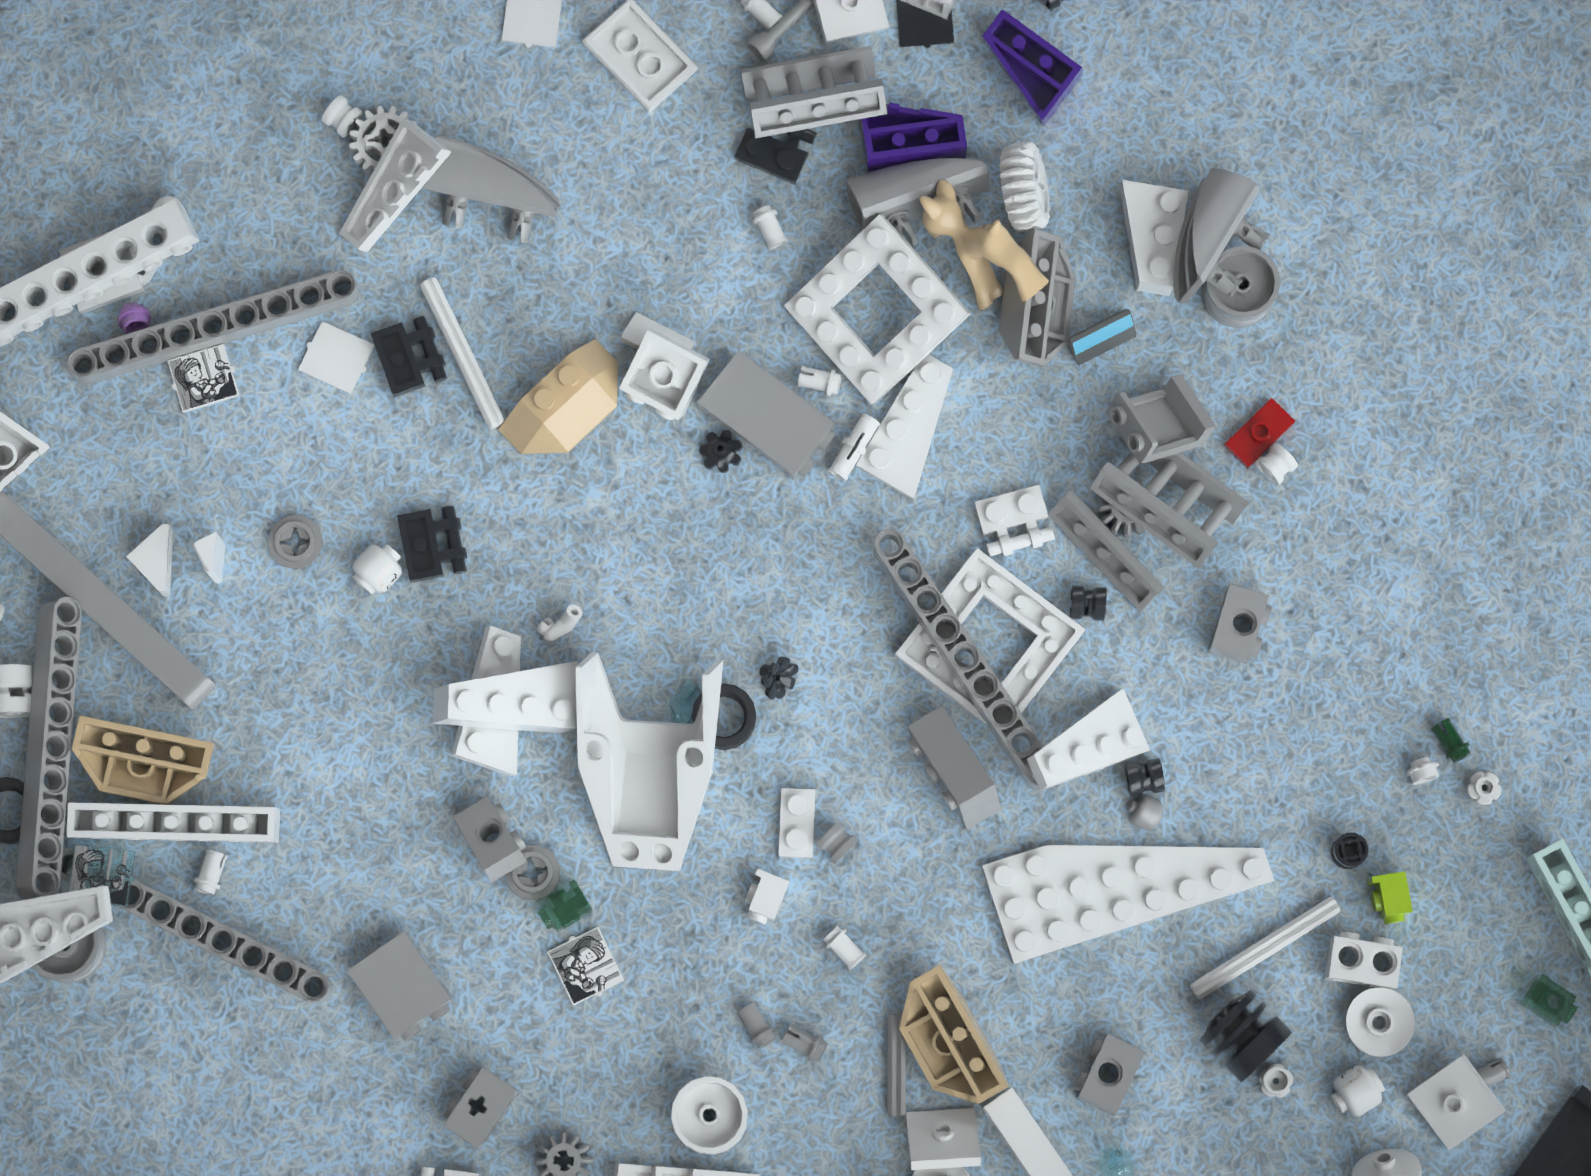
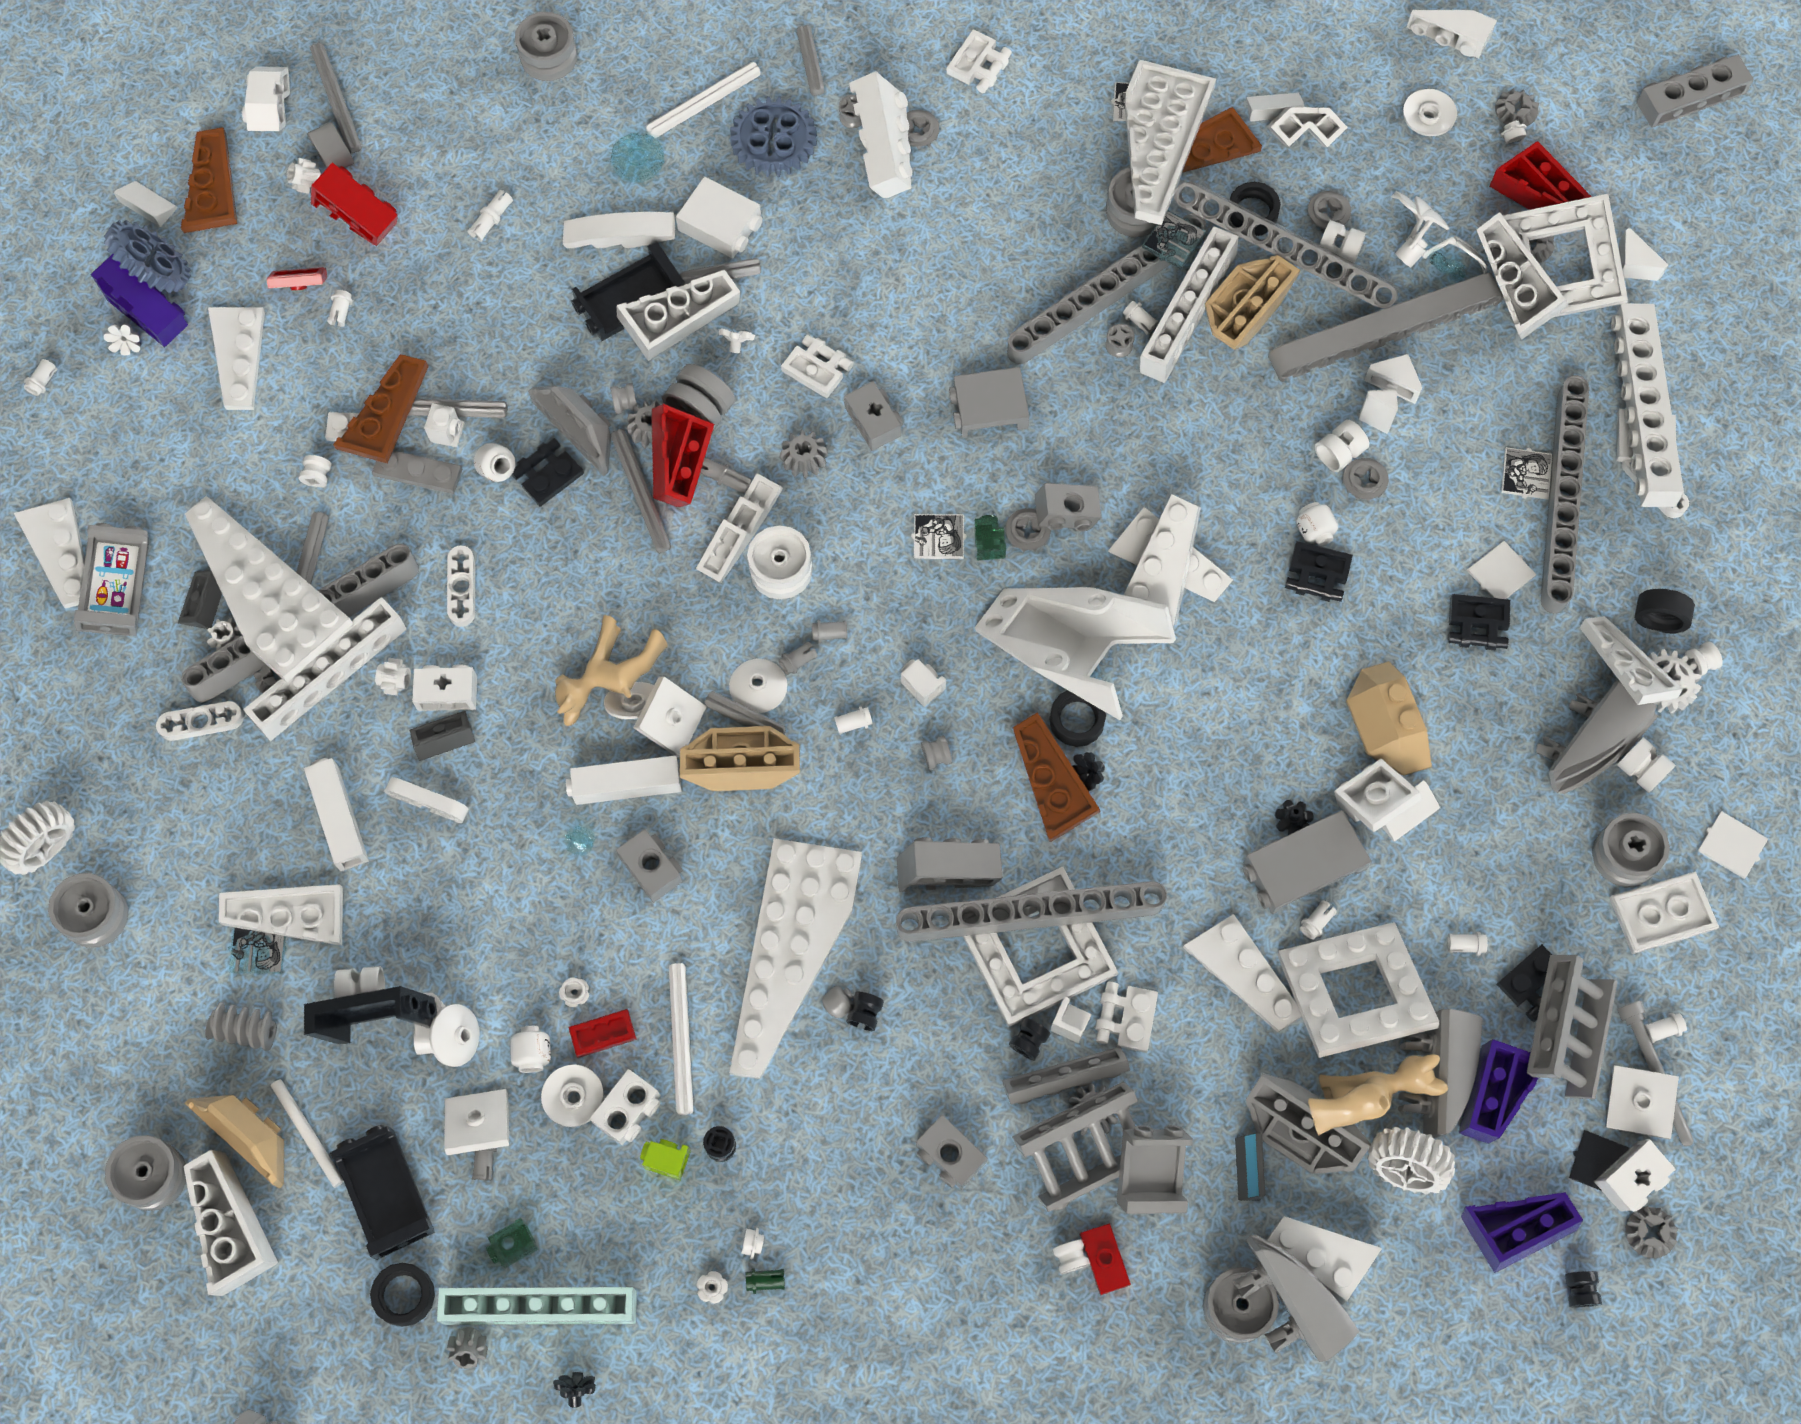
camera: 120 degrees right, 10 degrees down
(133, 317) = (1597, 442): medium lavender plate -> none
(248, 877) = (1122, 334): none -> light grey wheel
(282, 585) = (1342, 445): none -> white wheel
(310, 172) = (1664, 610): none -> black tyre
(462, 353) = (1464, 662): white axle -> none
(494, 124) = (1646, 765): none -> white wheel
(567, 622) = (1207, 627): white arm -> none
(592, 89) = (1630, 850): none -> light grey wheel
(797, 823) = (967, 733): white plate -> none
(804, 710) = (1056, 785): none -> dark orange wing
(848, 1089) = (762, 697): none -> white dish
(865, 427) = (1237, 902): white pin -> none
(1049, 572) = (1070, 1021): none -> white panel
(1093, 743) = (912, 982): white wing -> none
(1245, 1035) = (619, 978): black wheel -> none
(1307, 1030) = (602, 1033): none -> red plate

